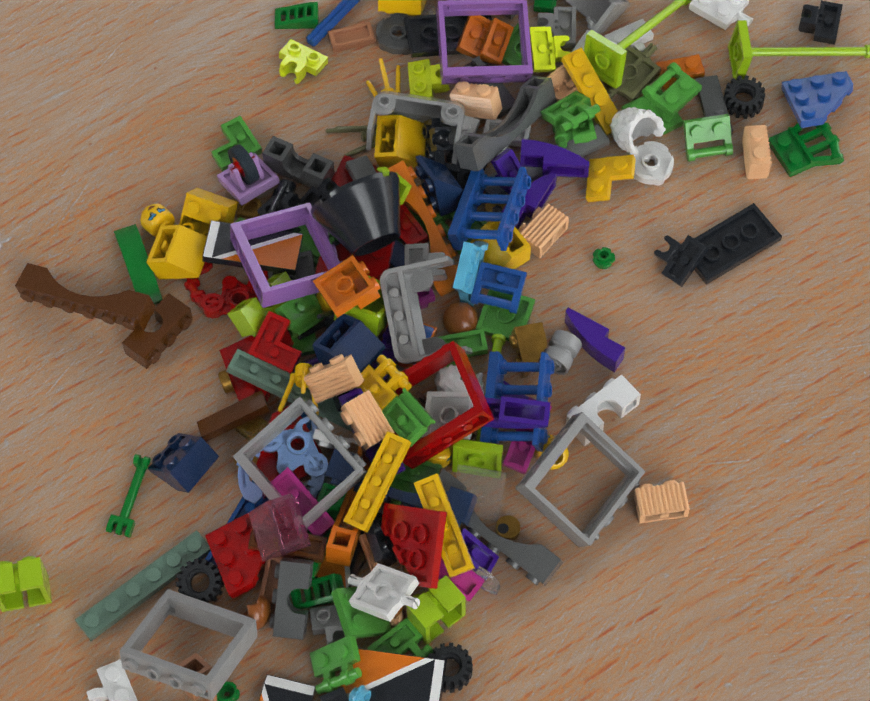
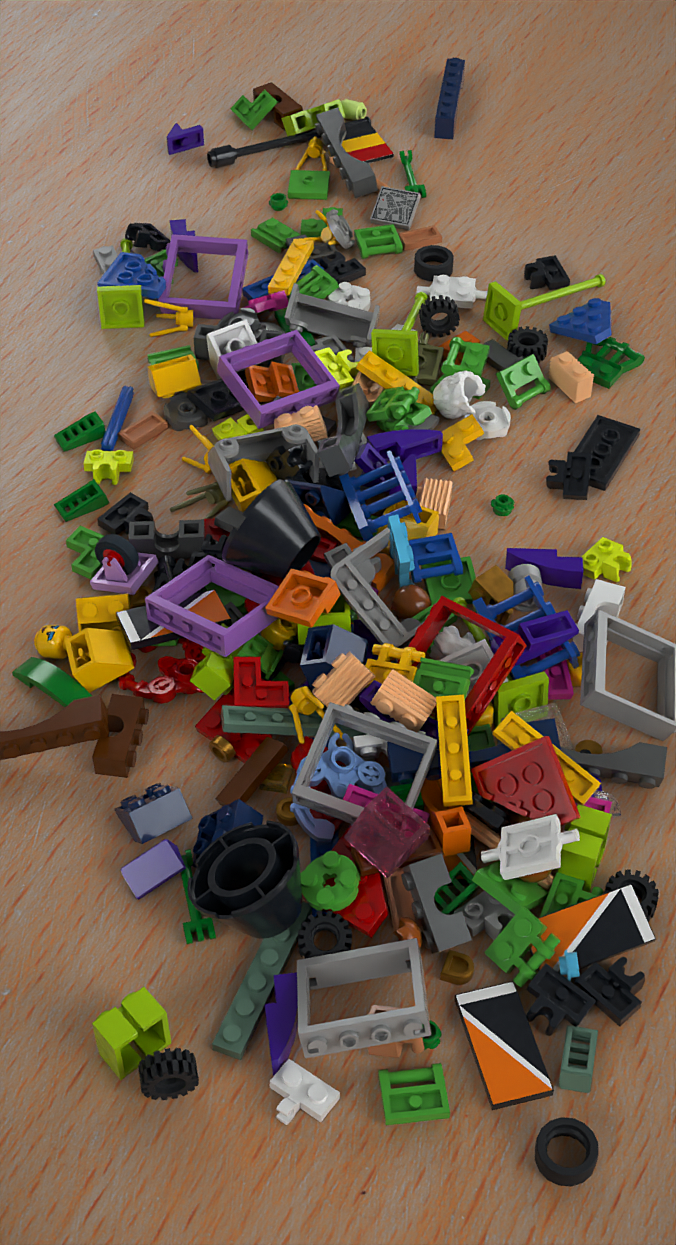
camera: 30 degrees left, 15 degrees down
(27, 628) = (168, 1074): none -> black tyre
(113, 460) = (153, 868): none -> slope
(126, 626) = (282, 1019): none -> dark purple slope
(142, 411) = (153, 812): none -> slope
(162, 511) = (250, 880): none -> black cone
(217, 530) = (326, 867): none -> bright green plate
(259, 96) = (95, 500): none -> green slope
(284, 121) = (127, 510): none -> black plate
(284, 654) = (457, 968): none -> pearl gold tile
(650, 355) = (606, 558): none -> neon yellow plate
(680, 30) = (439, 306): none -> black tyre

